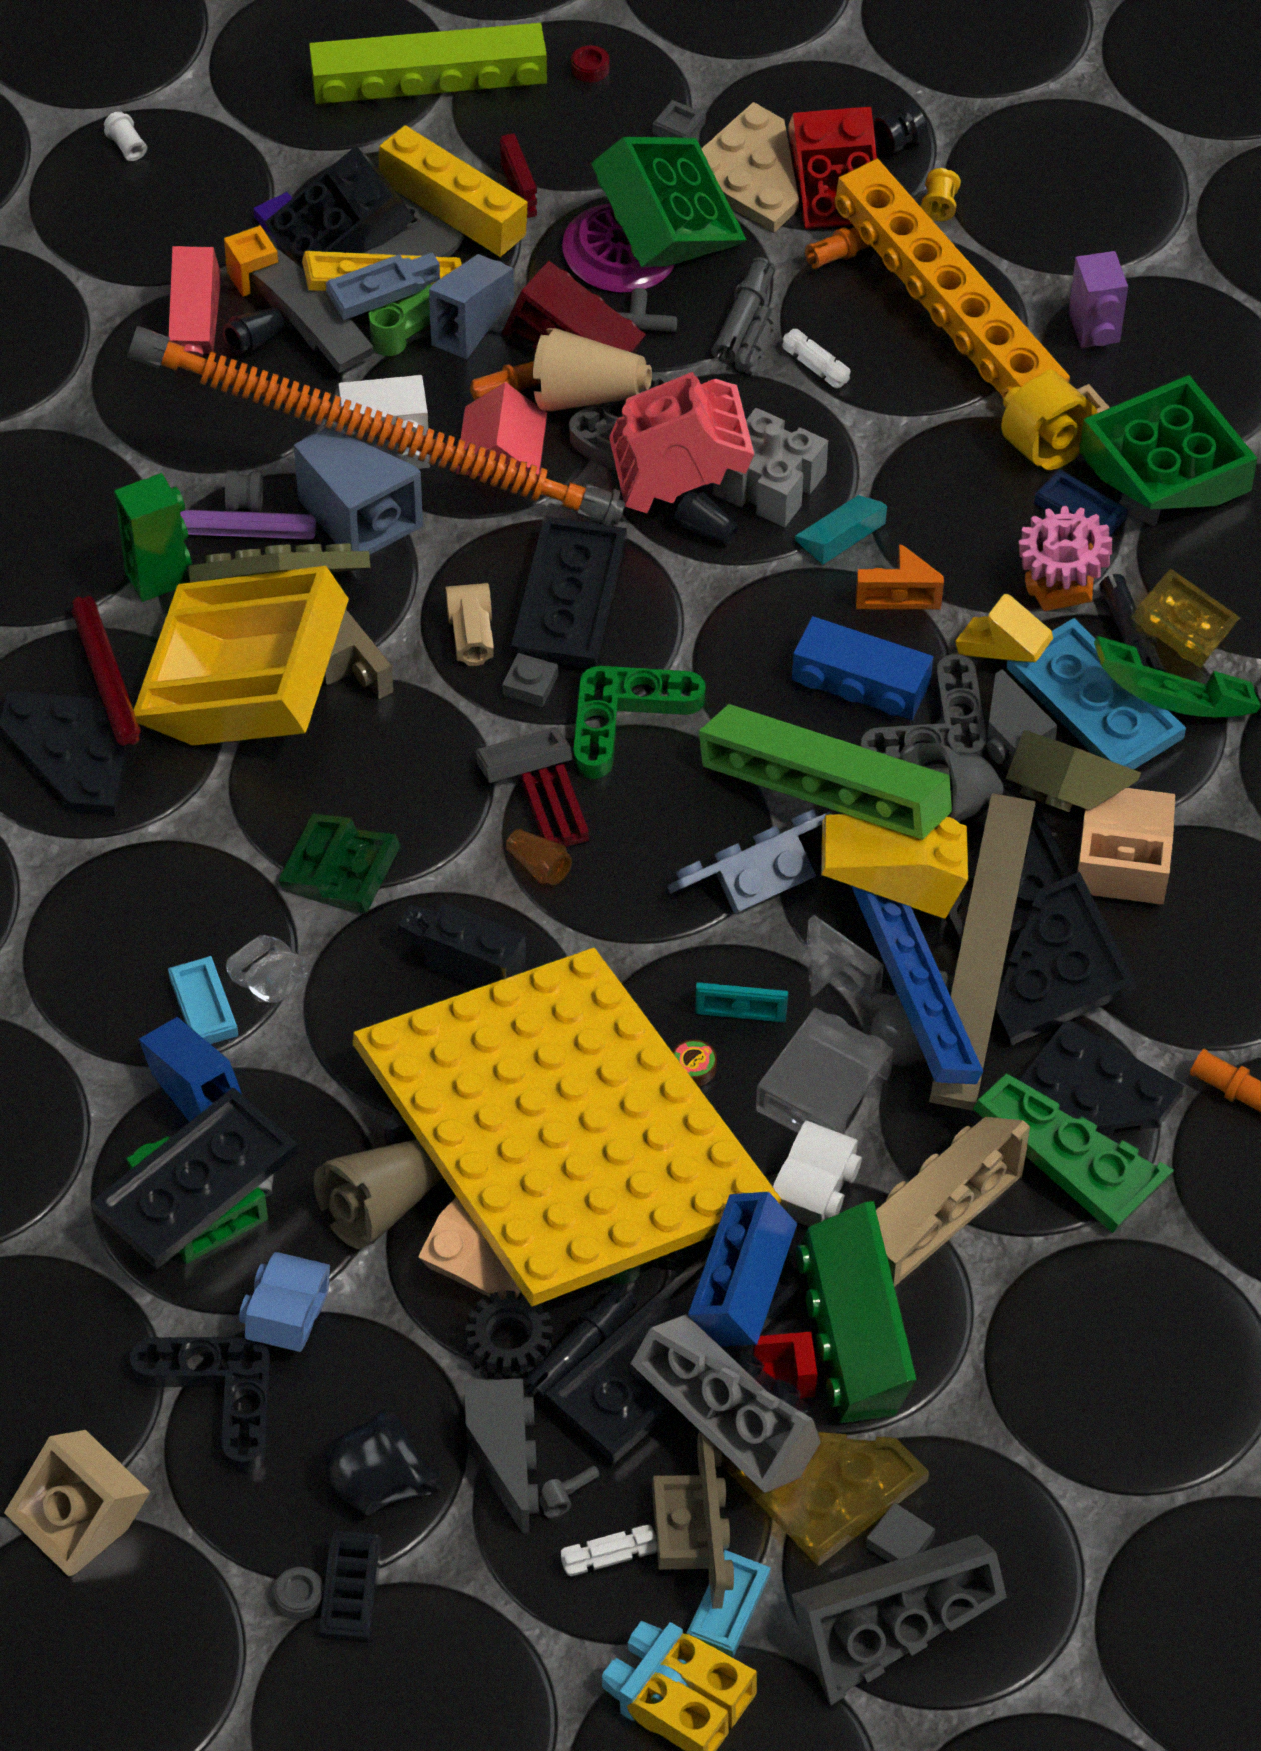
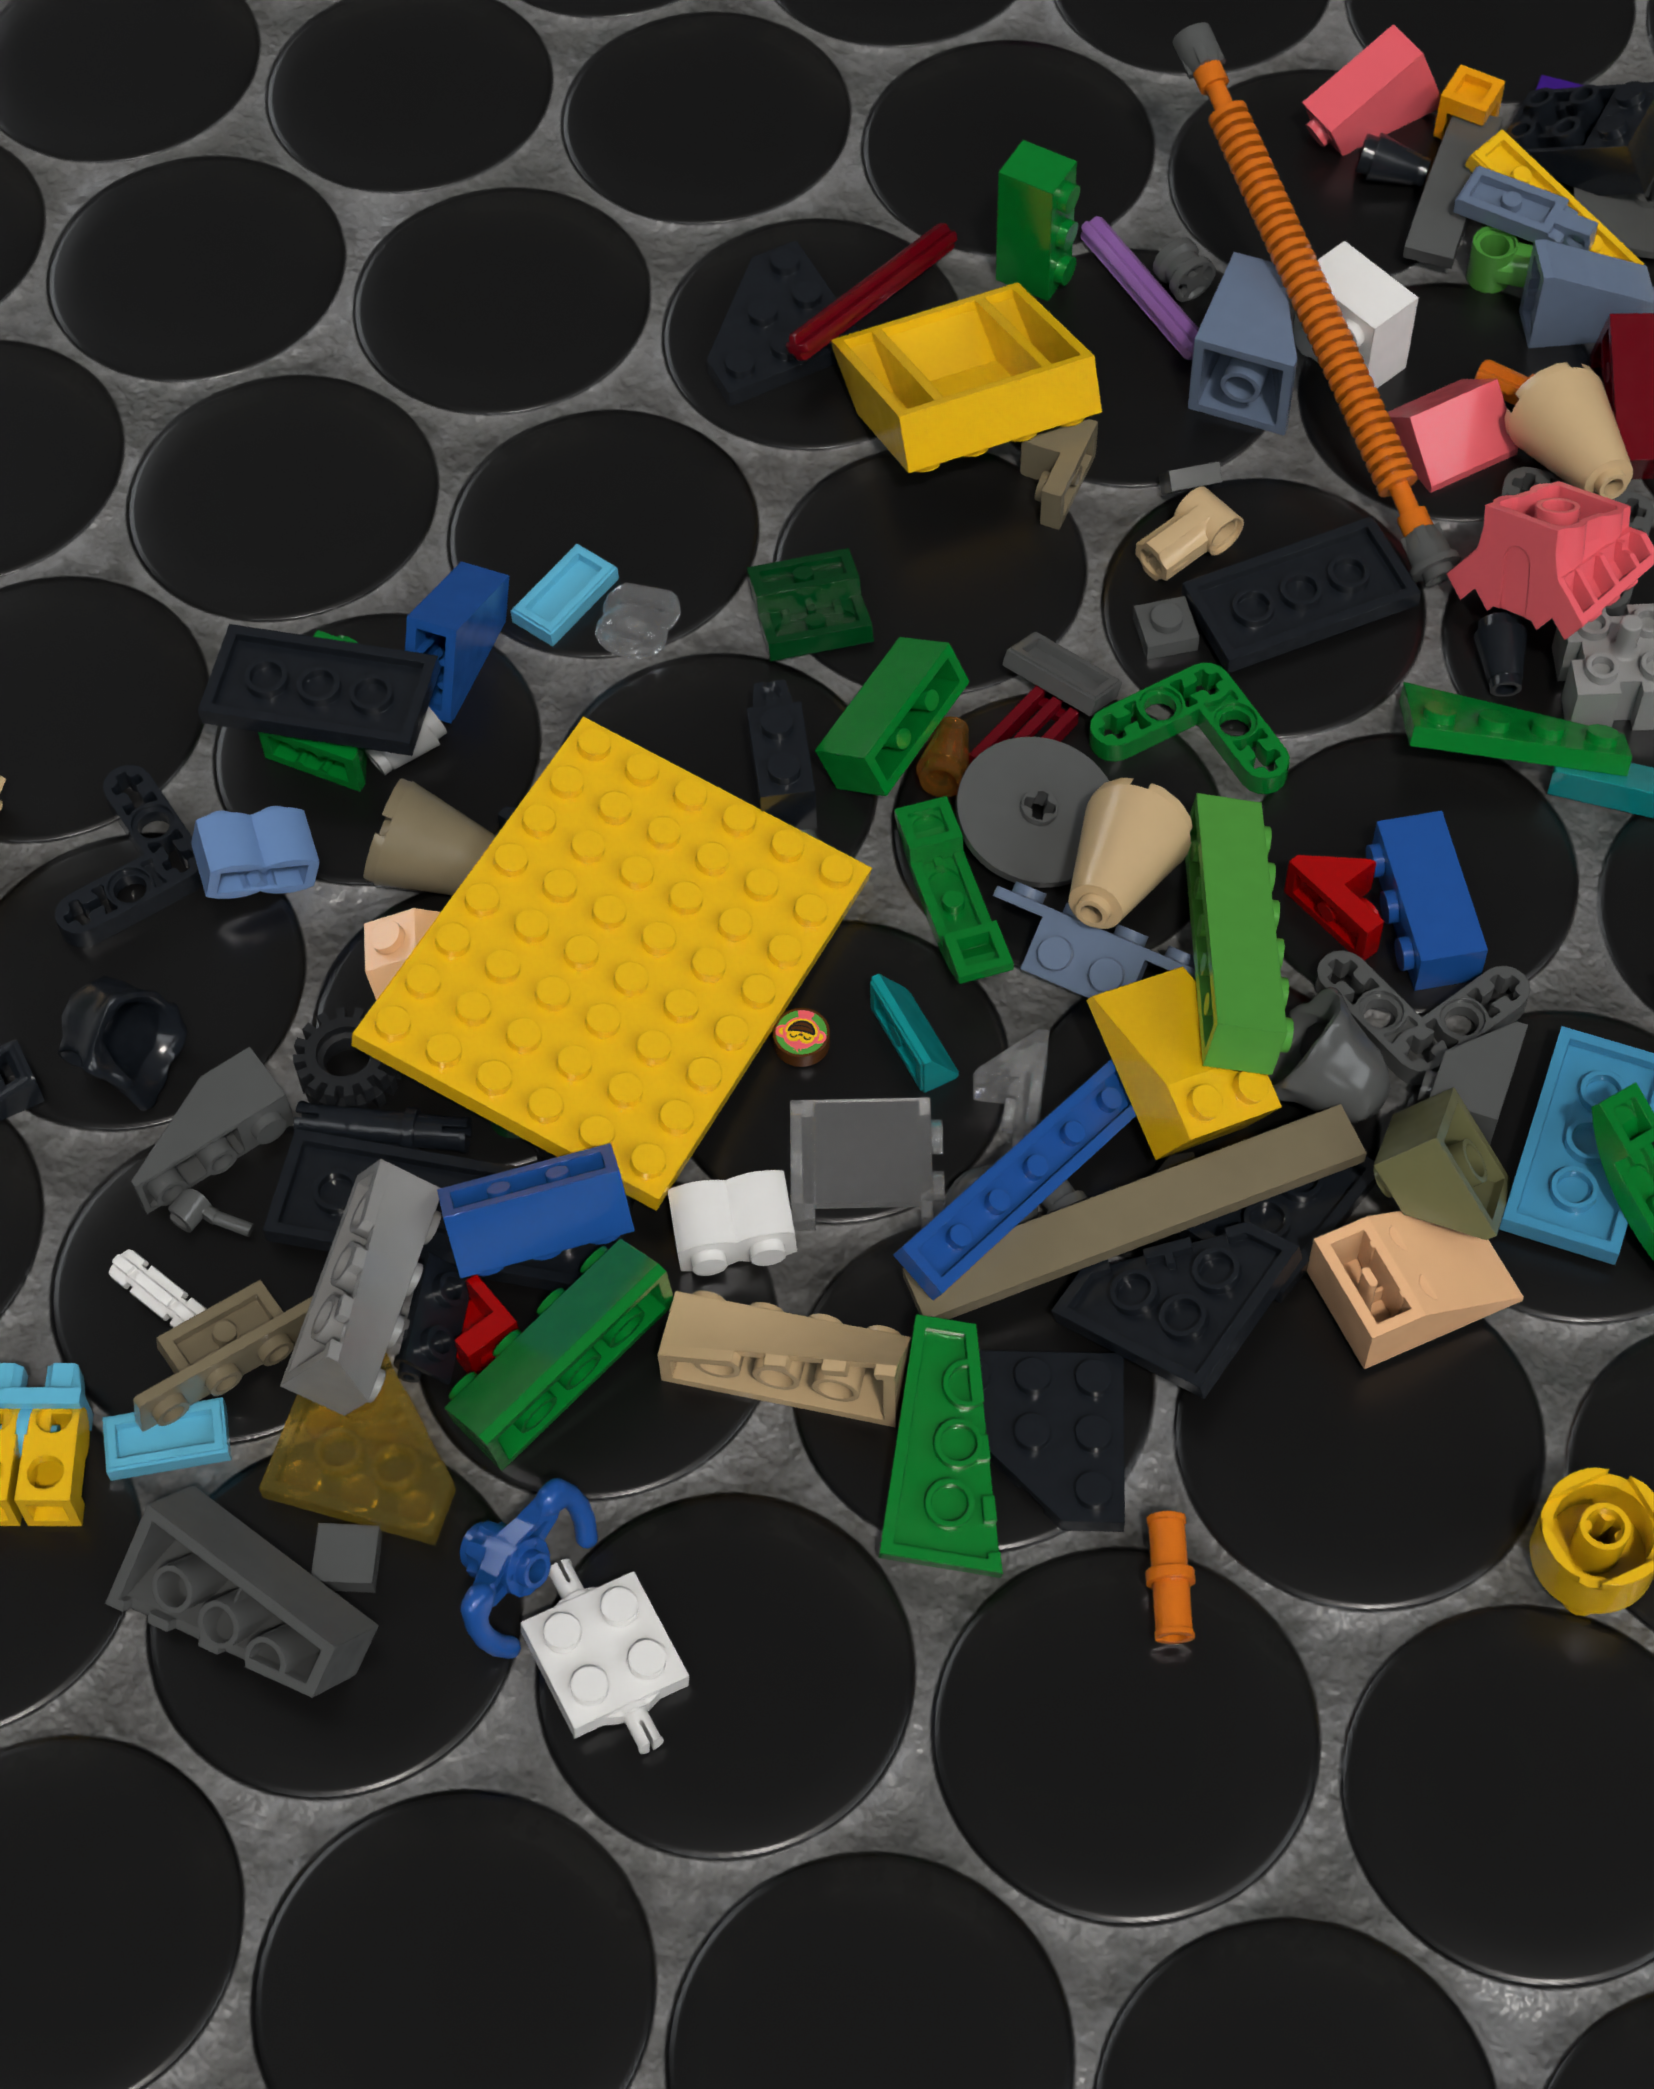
camera: 60 degrees right, 5 degrees up
(279, 558) = (1112, 343): olive plate -> none
(426, 592) = (1190, 478): none -> dark grey tile
(485, 862) = (892, 716): none -> green brick
(602, 807) = (997, 811): none -> dark grey piece
(652, 919) = (949, 891): none -> green slope
(713, 793) = (1126, 849): none -> tan cone
(767, 556) = (1497, 731): none -> green wing
(830, 716) = (1332, 895): none -> red slope
(907, 587) = (1571, 878): orange slope -> none
(982, 1430) = (517, 1559): none -> blue piece
(1005, 633) = (1587, 1005): yellow slope -> none
(1077, 1421) = (605, 1655): none -> white plate

